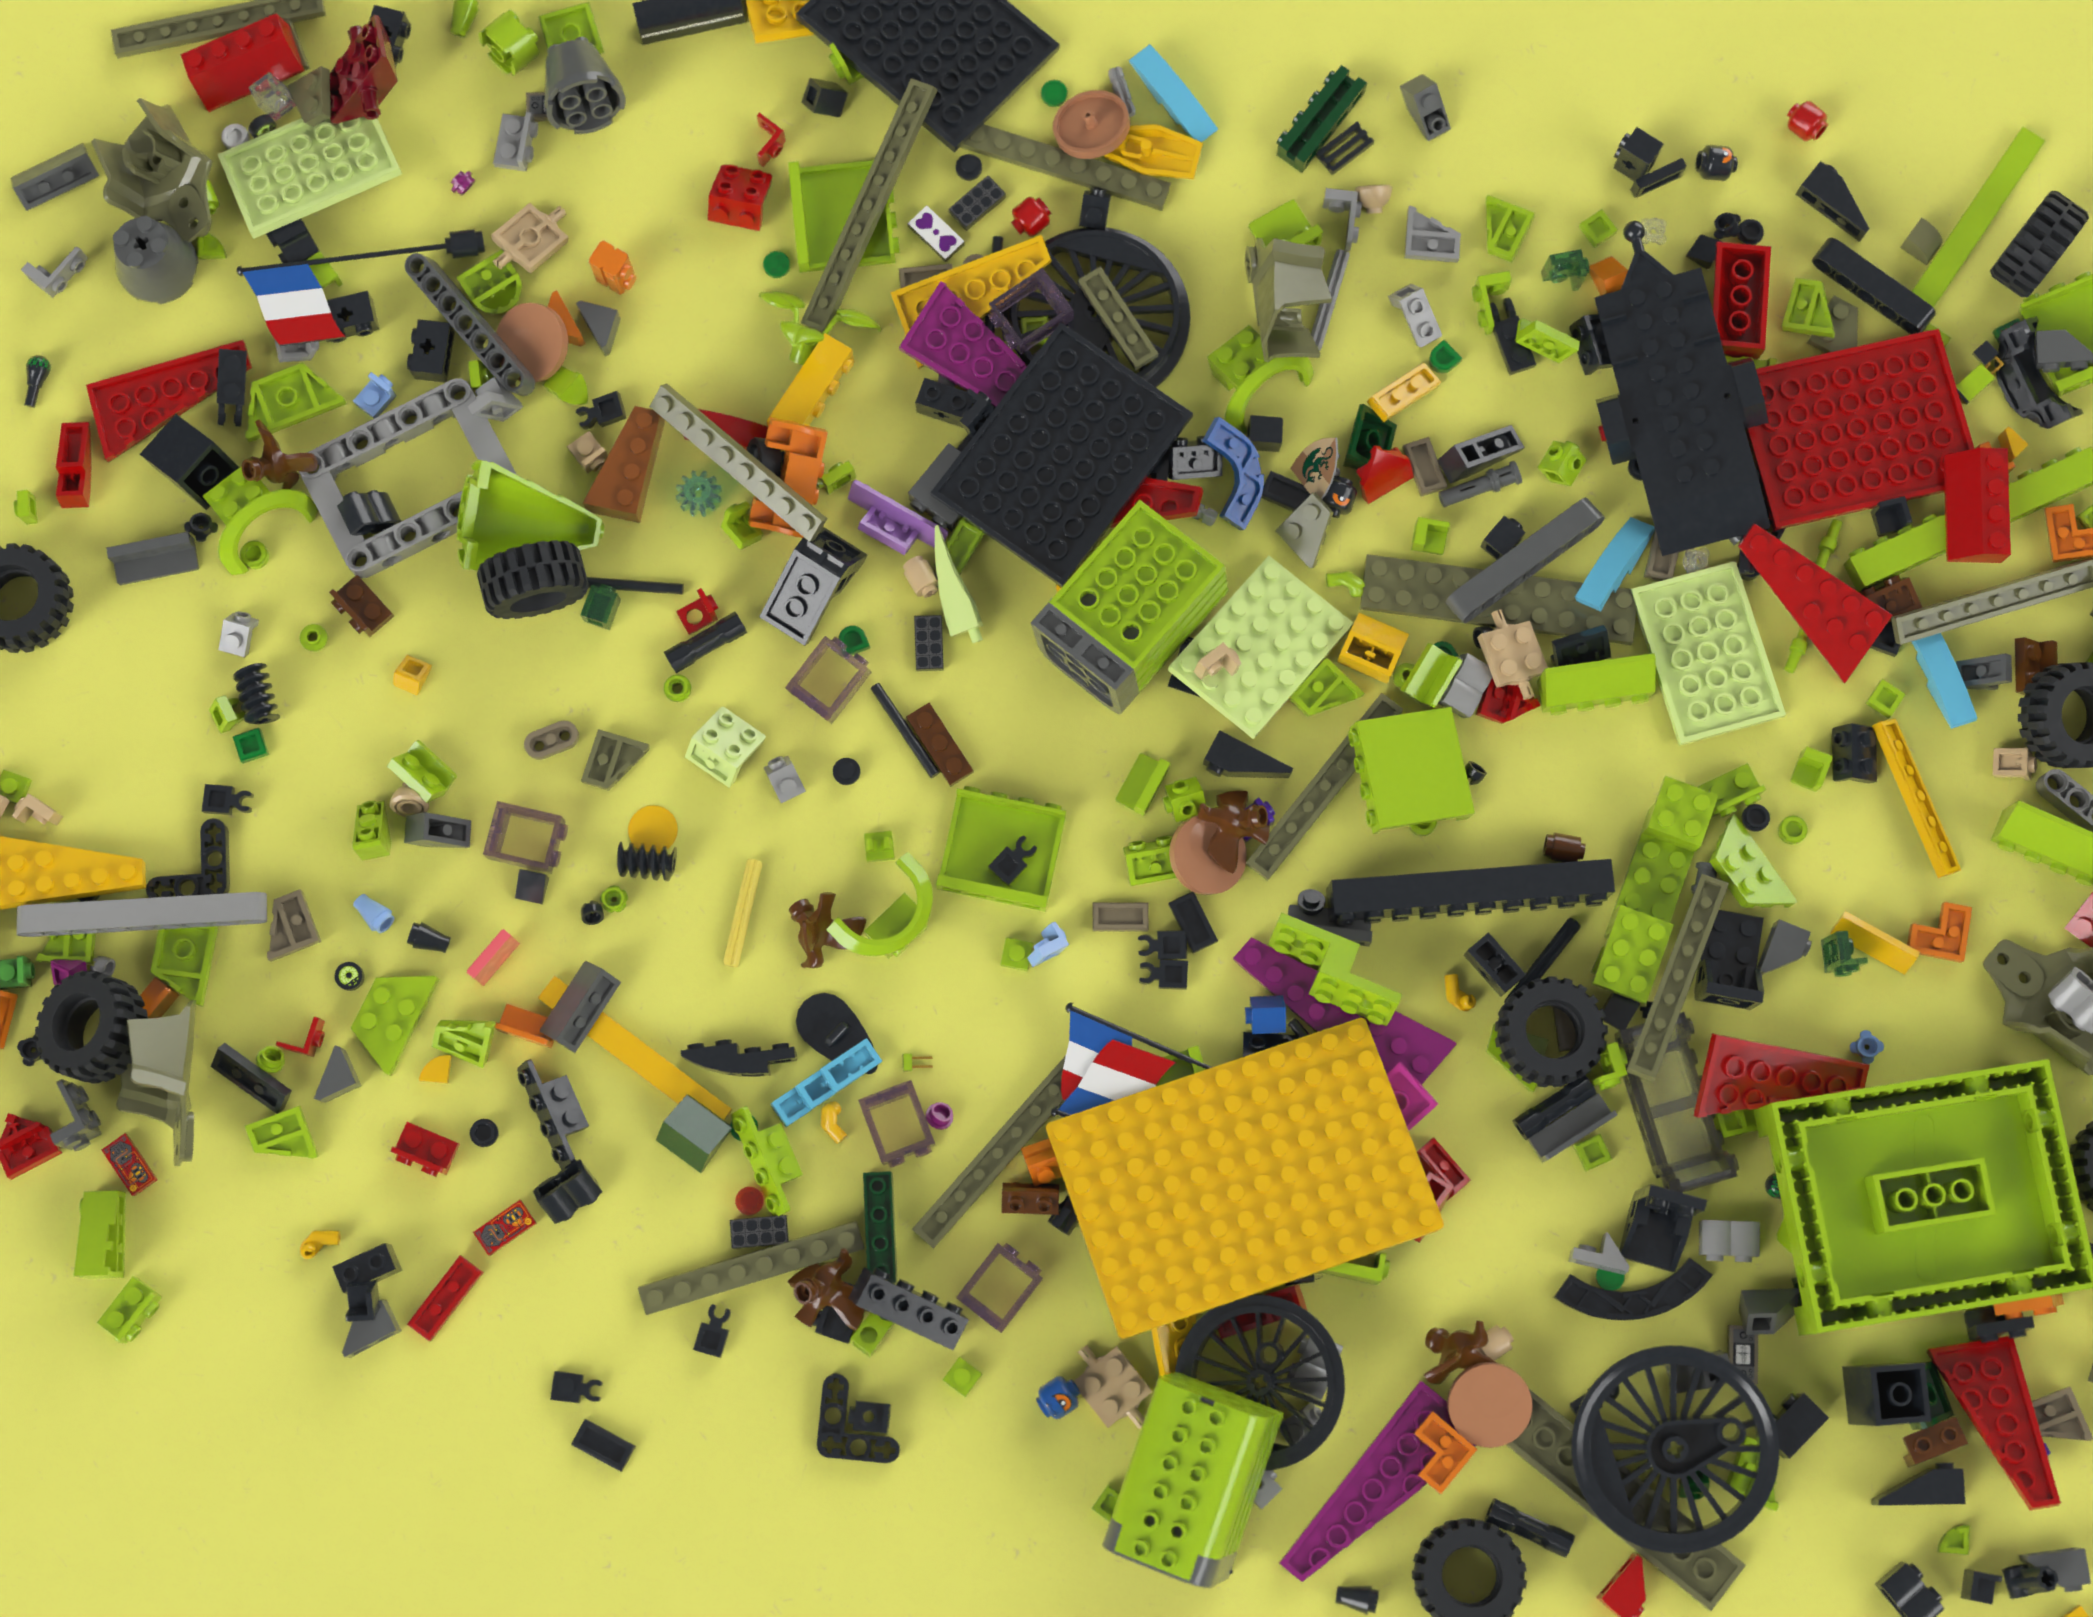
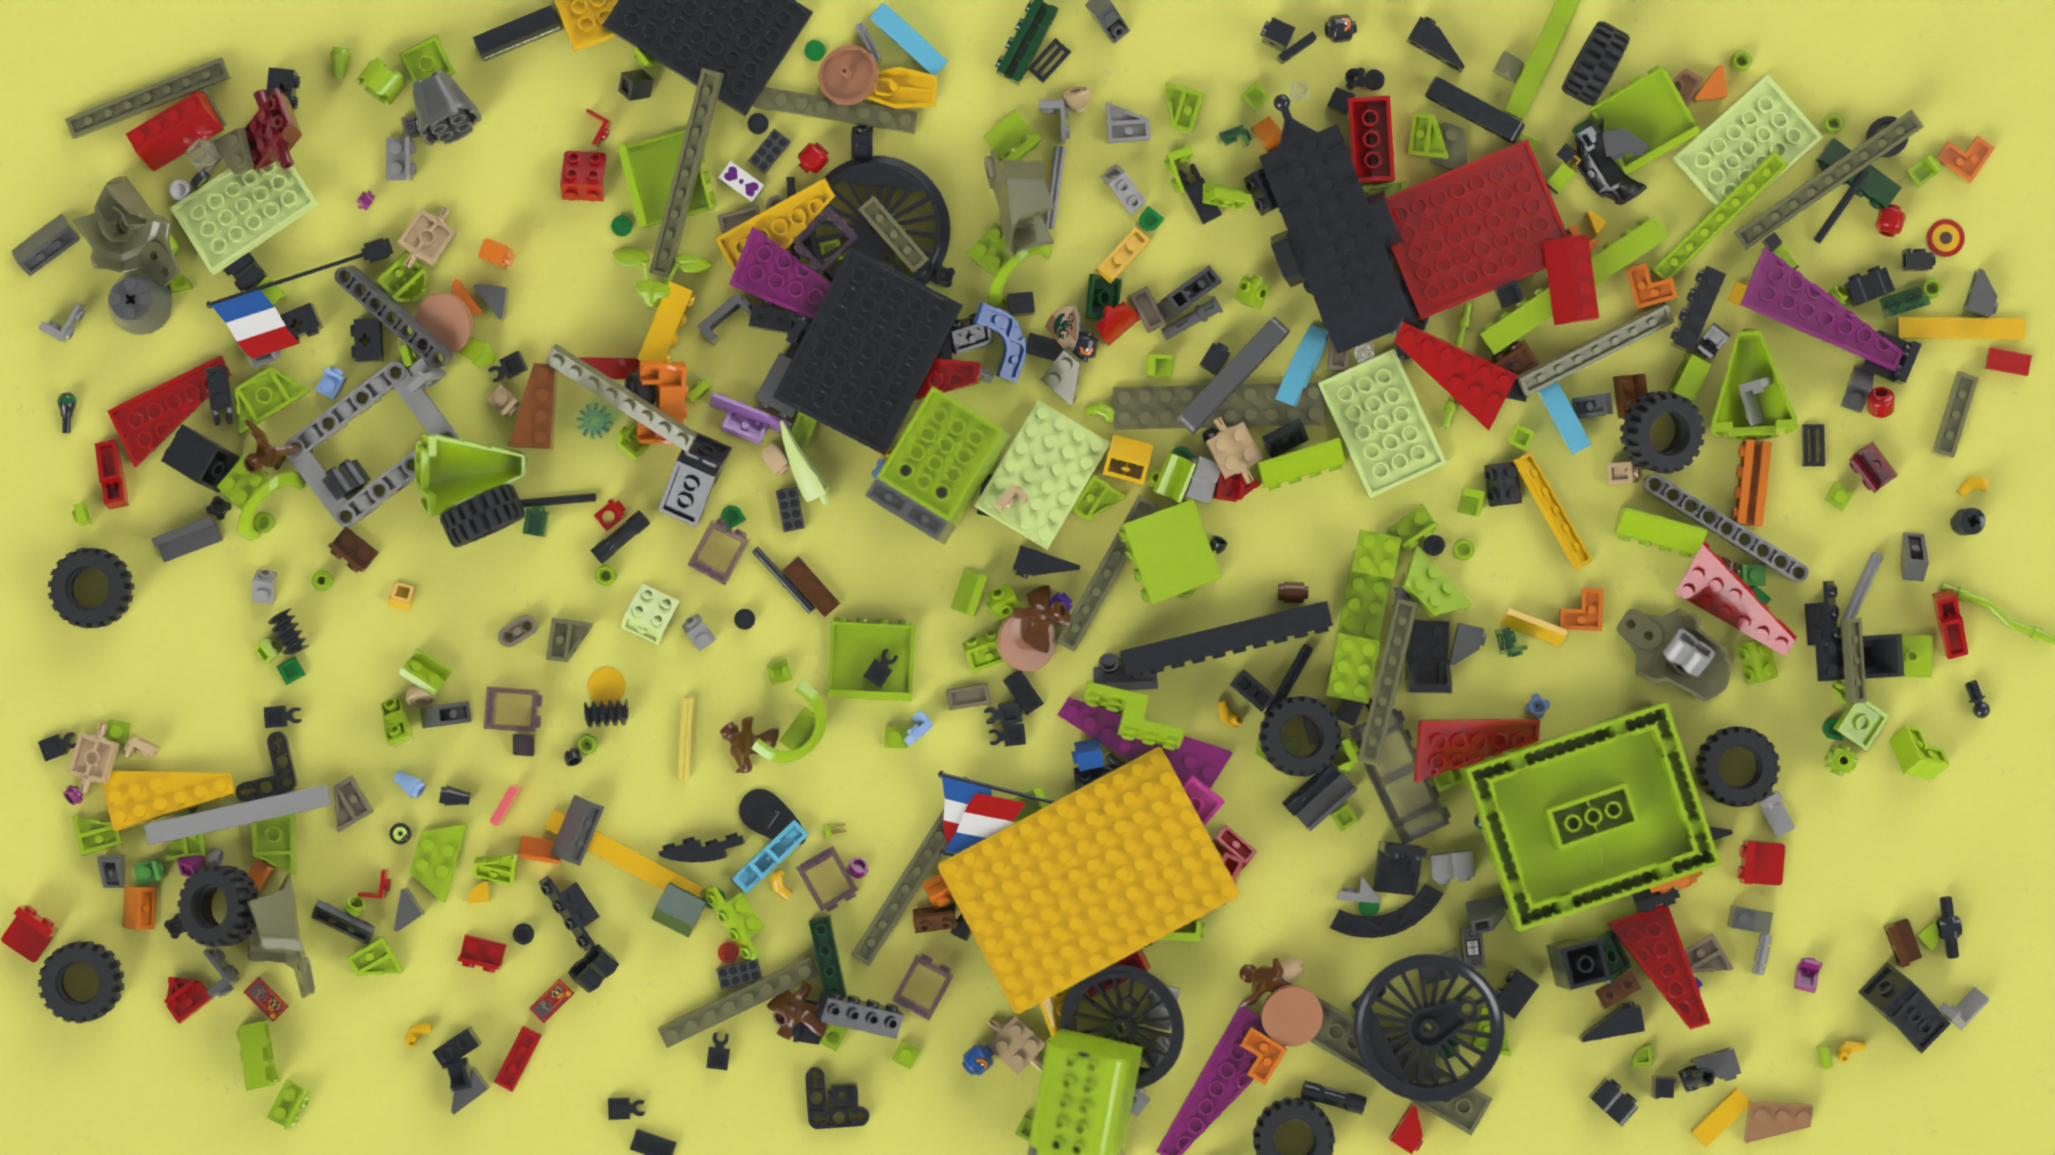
camera: 10 degrees left, 10 degrees up
(884, 384) = (721, 314): none -> dark grey panel
(1178, 381) = (949, 272): none -> black plate

